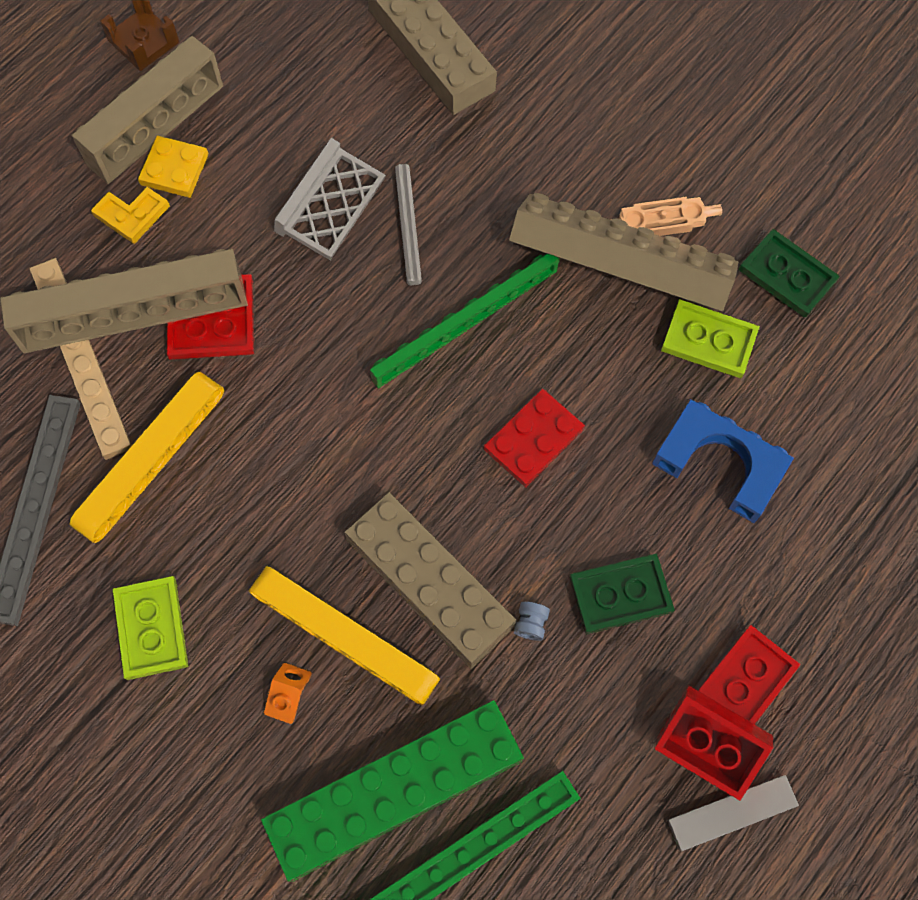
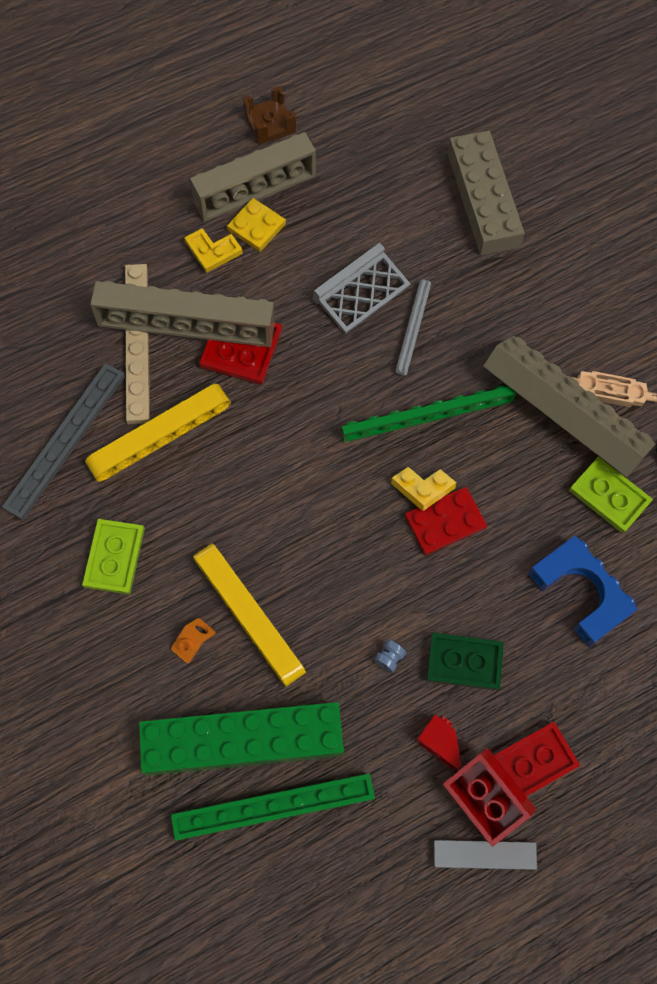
camera: 20 degrees right, 0 degrees up
(430, 580) = (326, 598): dark tan brick -> none
(494, 412) = (423, 492): none -> yellow plate
(631, 699) = (441, 742): none -> red slope

